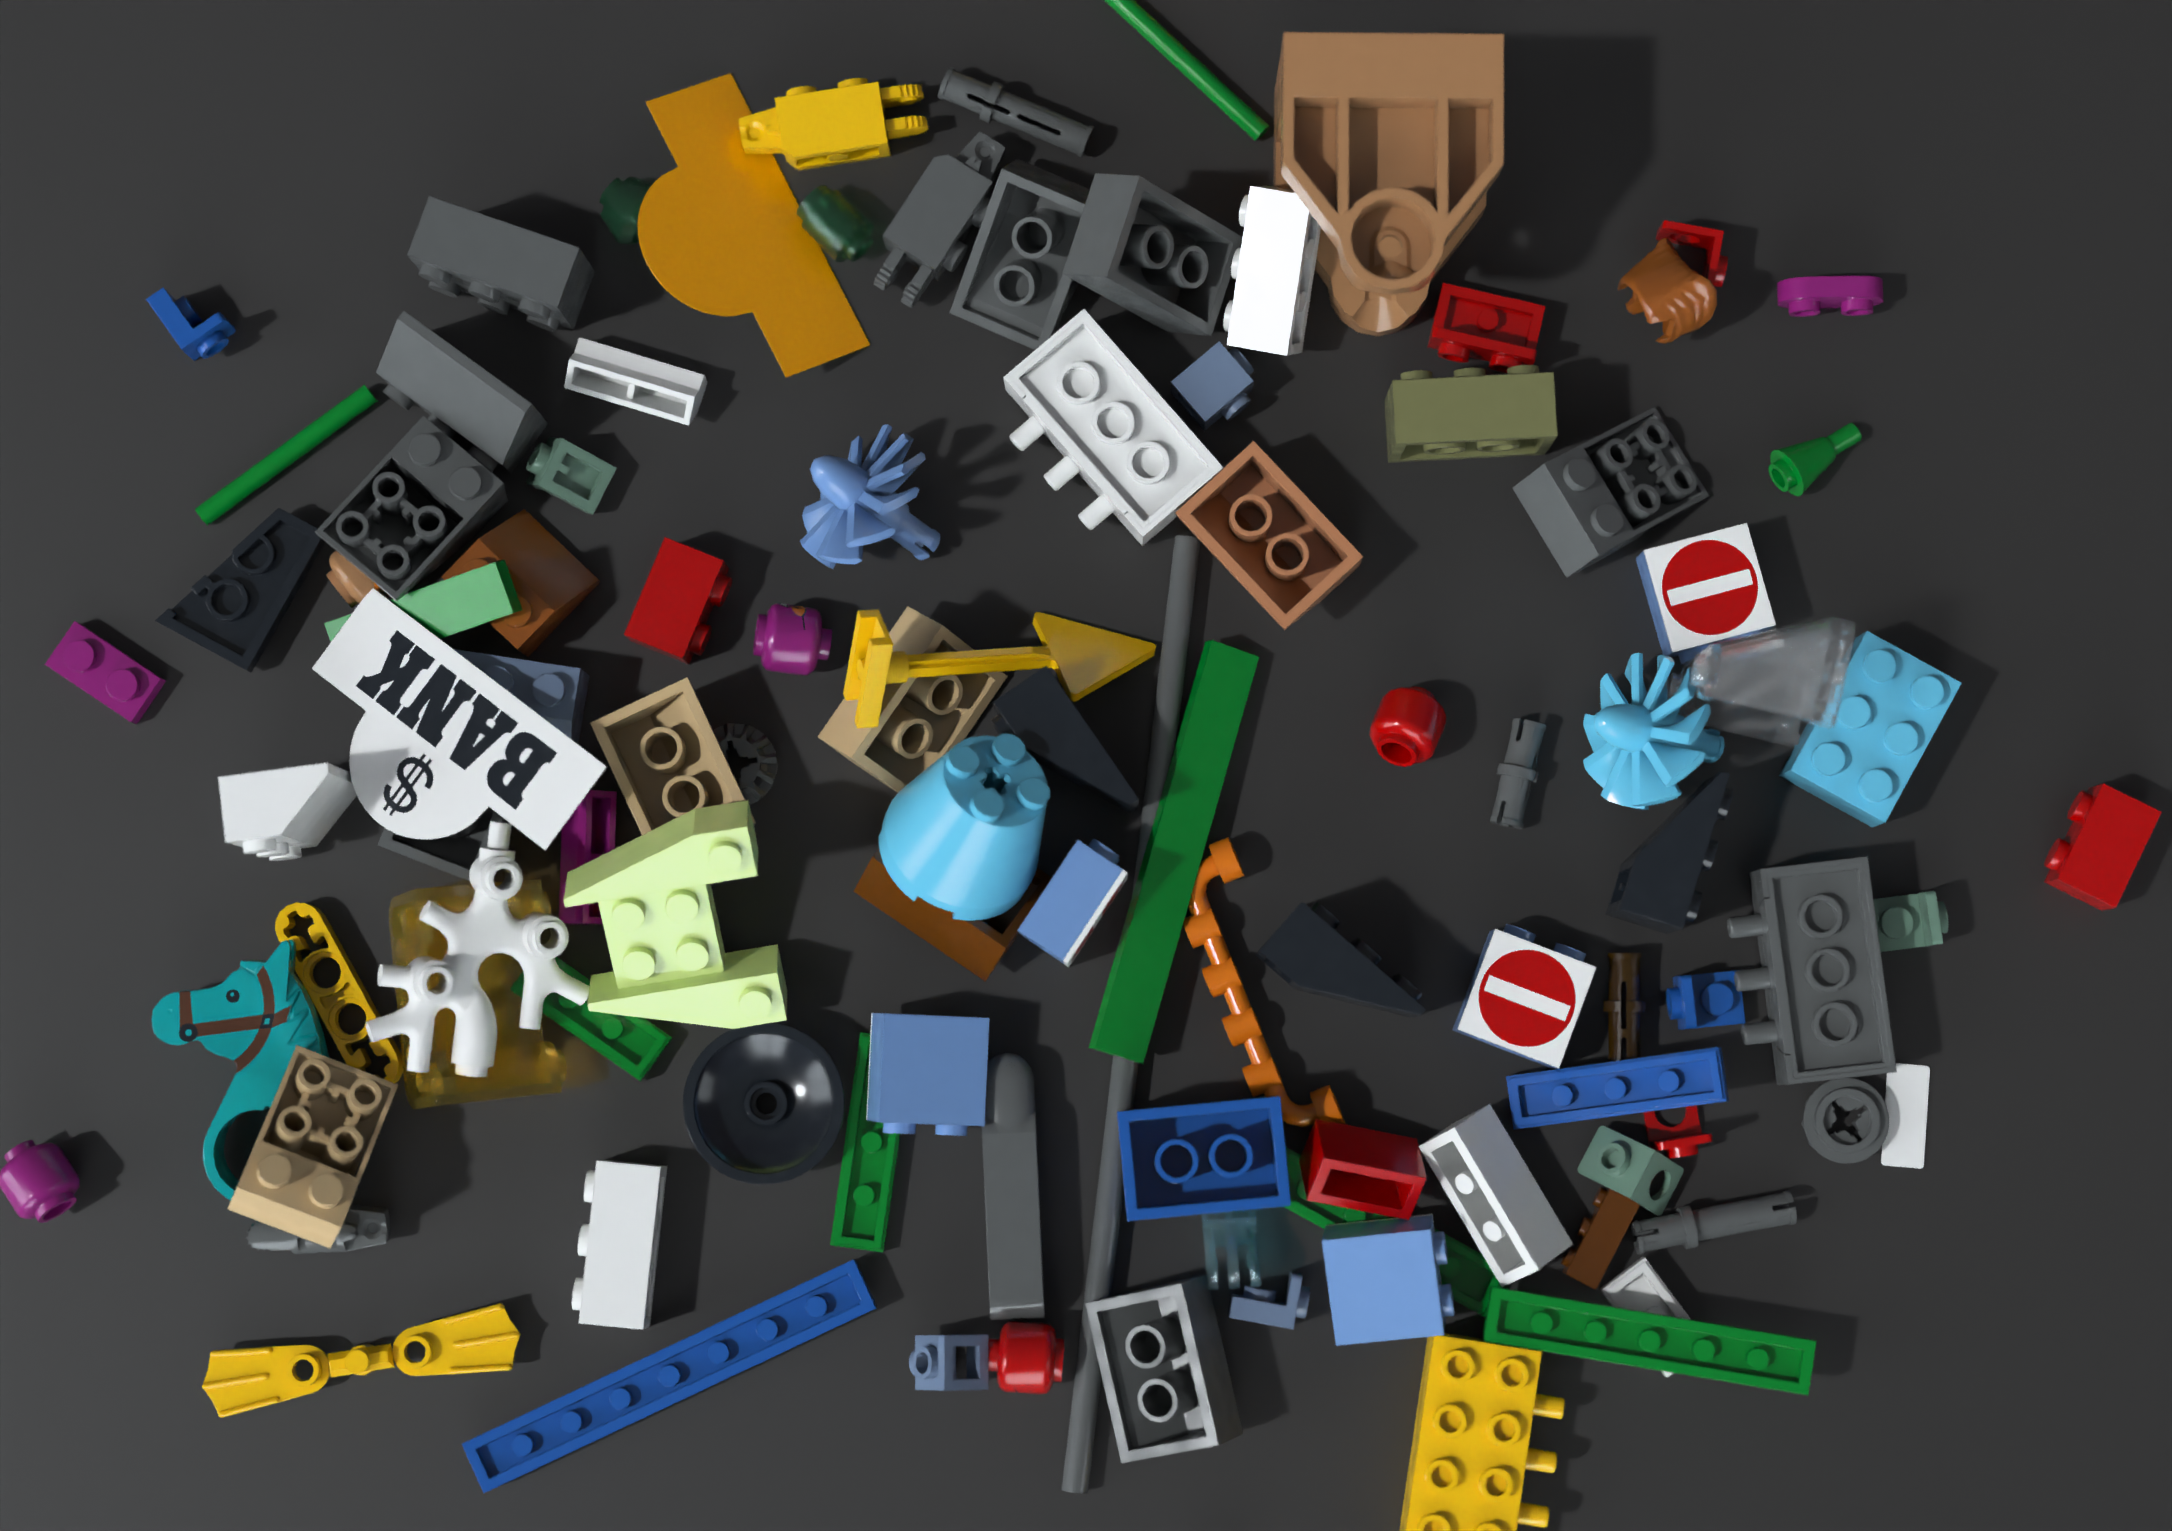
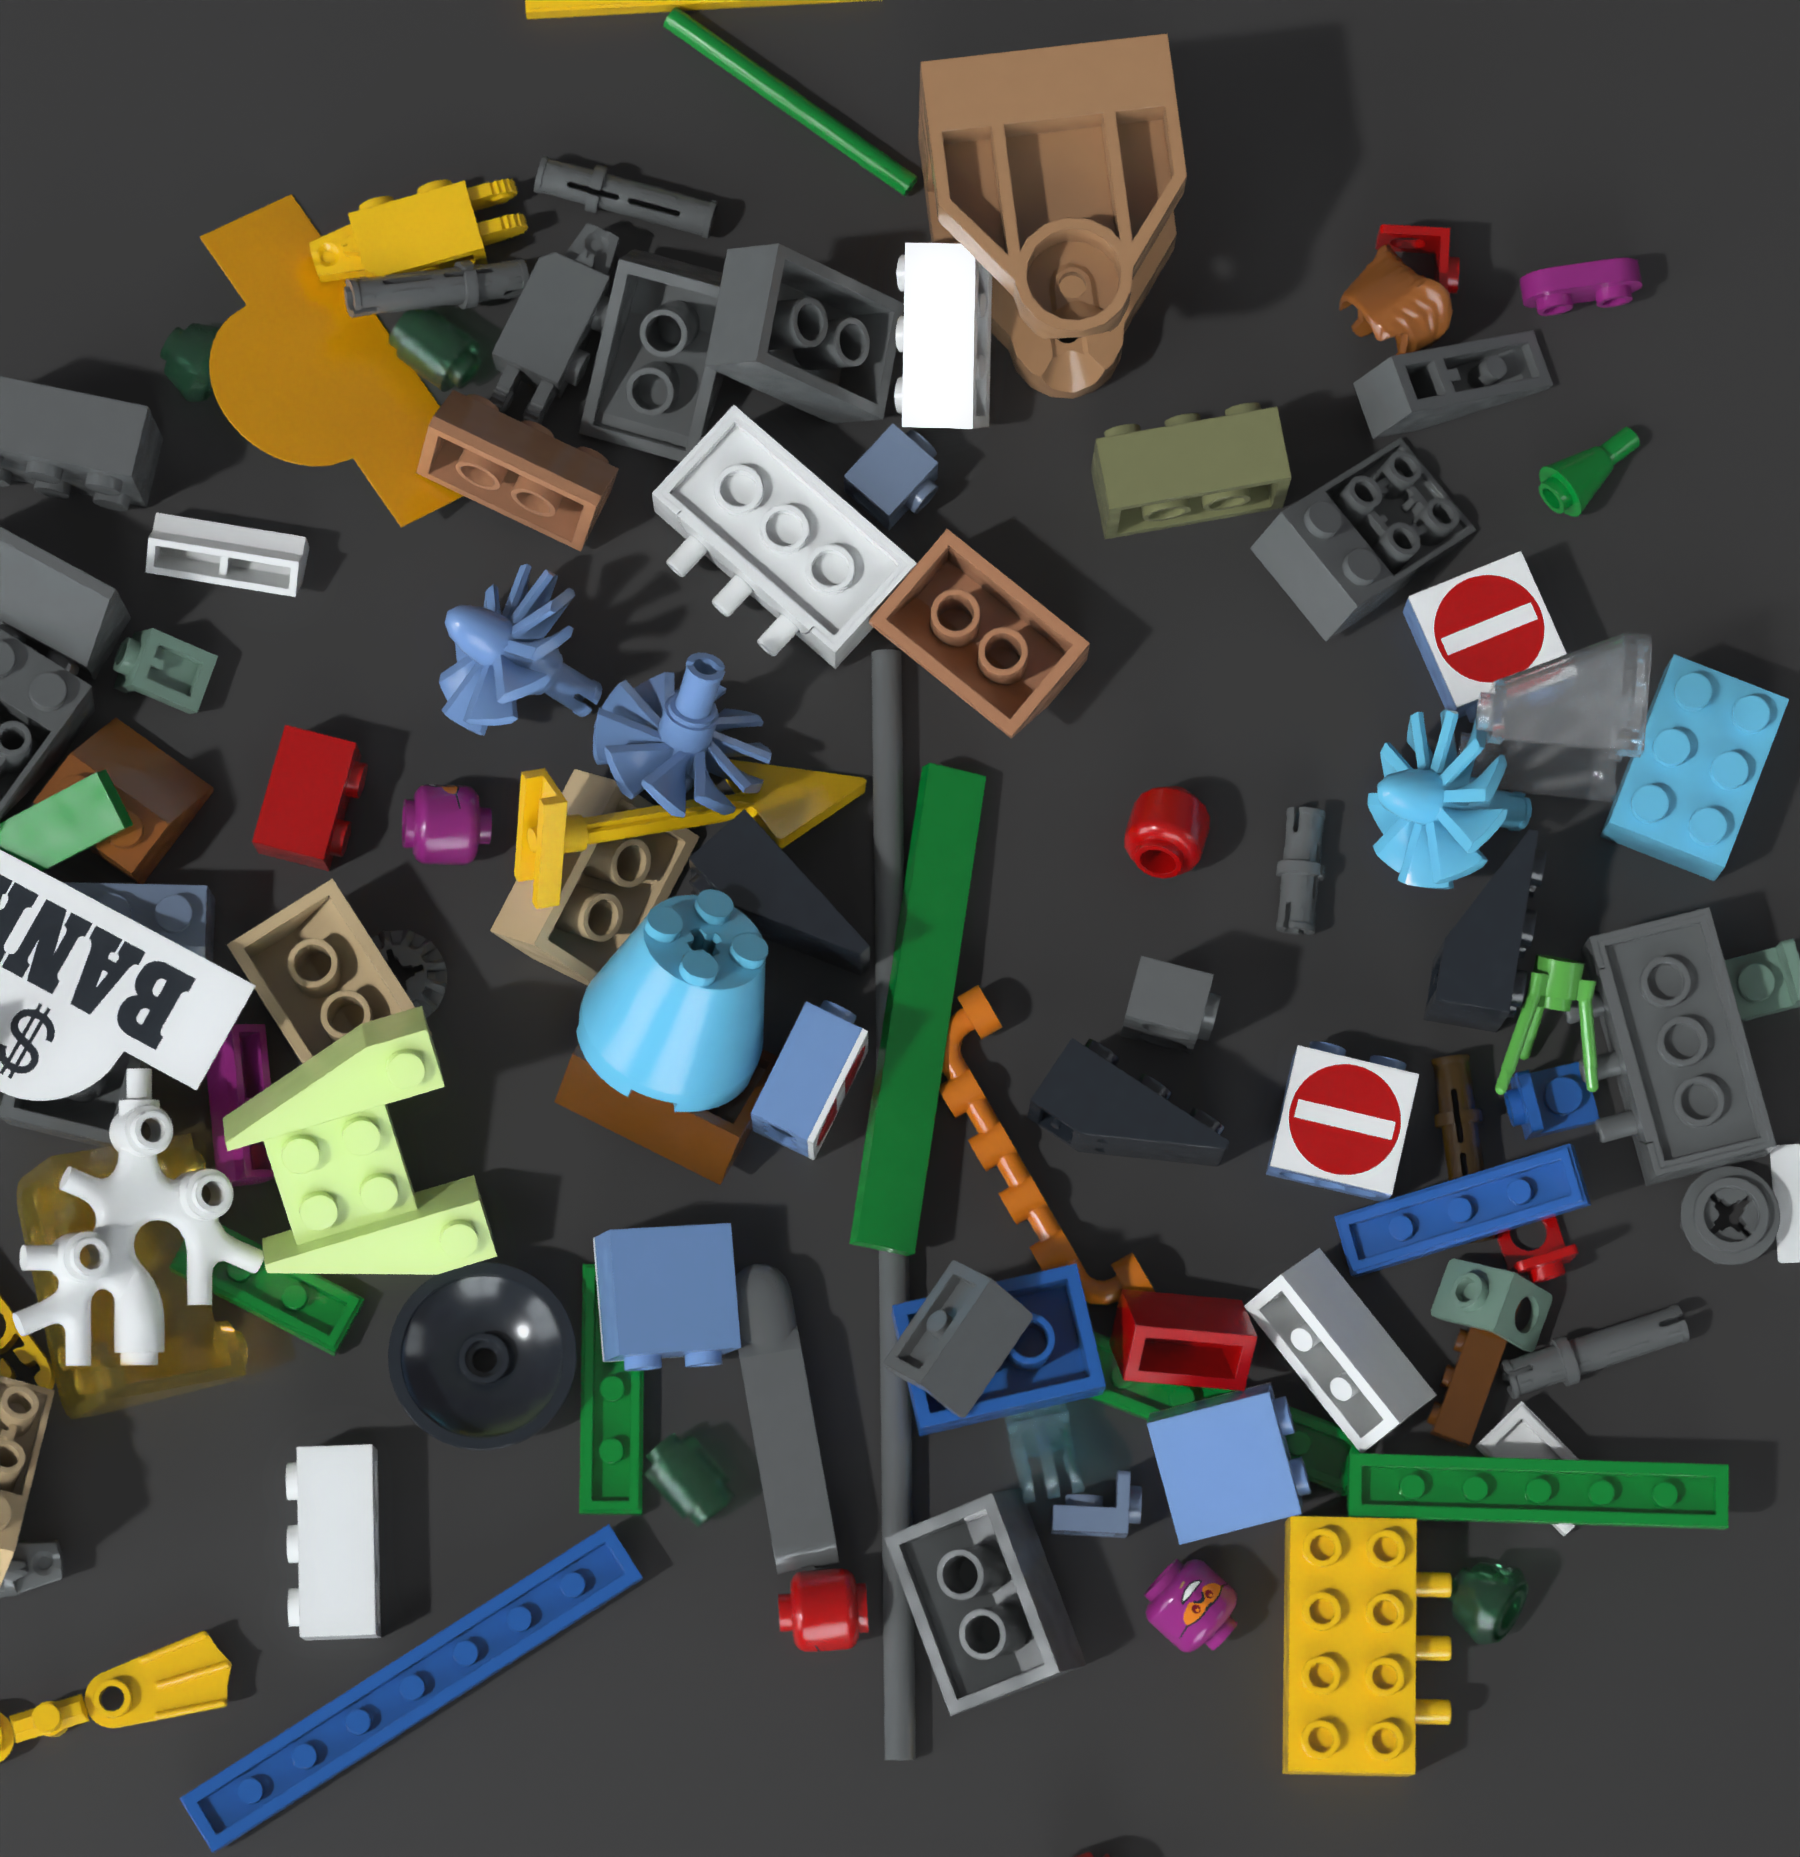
camera: 15 degrees left, 5 degrees down
(832, 172) = (456, 285): none -> dark grey pin
(891, 338) = (516, 468): none -> nougat slope
(926, 1229) = (689, 1479): none -> clear green brick
(935, 1362) = (719, 1626): sand blue brick -> none
(989, 592) = (672, 738): none -> medium blue piece
(1169, 1150) = (959, 1338): none -> dark grey panel
(1339, 1395) = (1191, 1605): none -> magenta head
(1390, 879) = (1170, 1006): none -> dark grey brick
(1485, 328) = (1194, 371): red bracket -> none
(1593, 1425) = (1488, 1600): none -> clear green cone
(1705, 365) = (1450, 382): none -> dark grey slope
(1722, 908) = (1553, 986): none -> bright green plant

